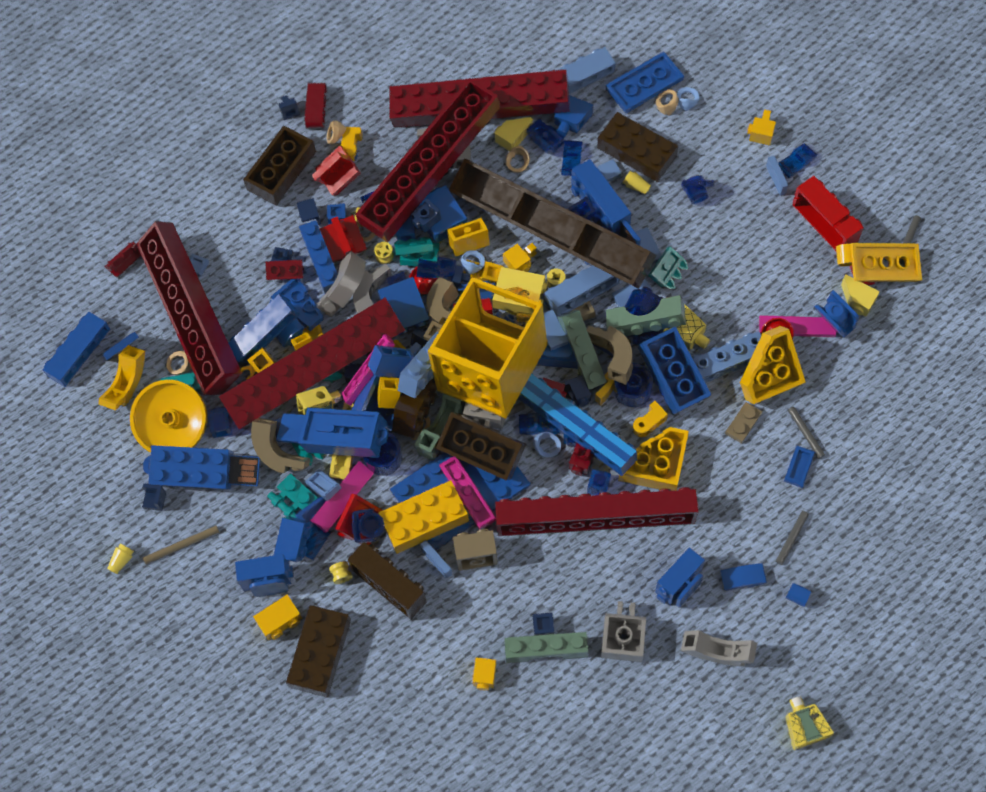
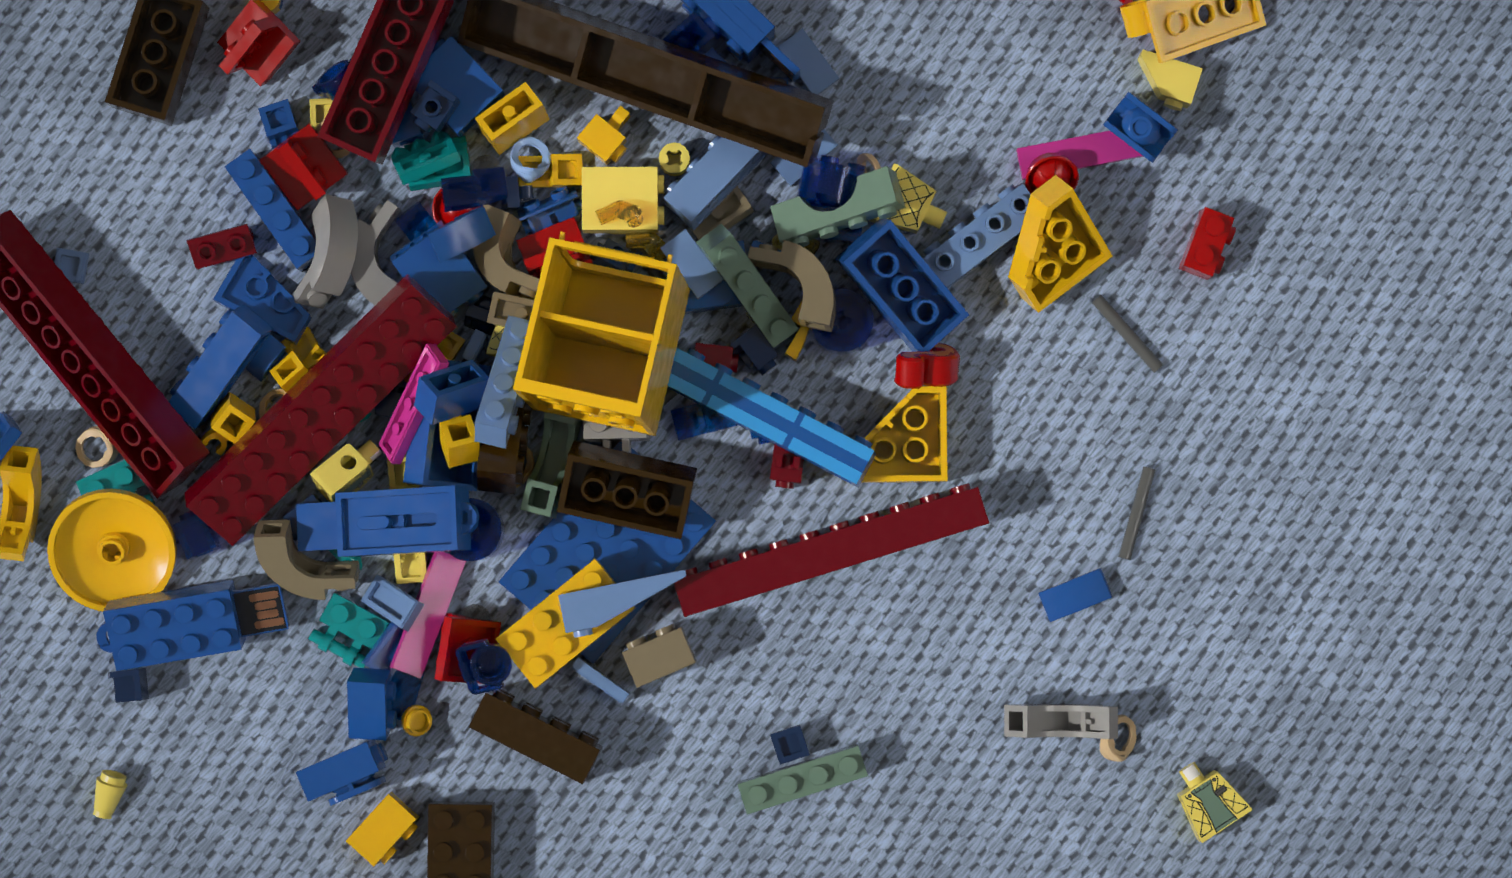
camera: 20 degrees left, 20 degrees up
(181, 544) = (196, 747): dark tan piece -> none
(282, 254) = (208, 218): dark blue tile -> none
(308, 210) = (231, 129): dark blue panel -> none
(317, 558) = (416, 720): none -> yellow plate
(340, 572) = (459, 735): light yellow wheel -> none
(381, 249) = (372, 174): light yellow wheel -> none
(422, 284) = (461, 234): none -> blue slope
(449, 502) = (597, 605): none -> medium blue slope
(468, 492) = (619, 559): dark pink tile -> none
(484, 673) = (719, 840): yellow brick -> none
(544, 435) = (719, 435): light blue piece -> none
(598, 482) = (823, 498): clear blue brick -> none
(630, 625) = (896, 724): light grey hinge -> none
(653, 419) = (872, 384): yellow leg -> none
(667, 267) = (852, 97): teal plate -> none
(679, 417) = (929, 368): none -> red animal
(681, 579) = (983, 628): blue brick -> none
(743, 422) = (1026, 340): dark tan plate -> none
(746, 672) = (1107, 746): none -> tan piece
(798, 594) = (1163, 605): blue brick -> none
(799, 466) = (1127, 393): blue tile -> none
(863, 391) = (1207, 243): none -> red brick

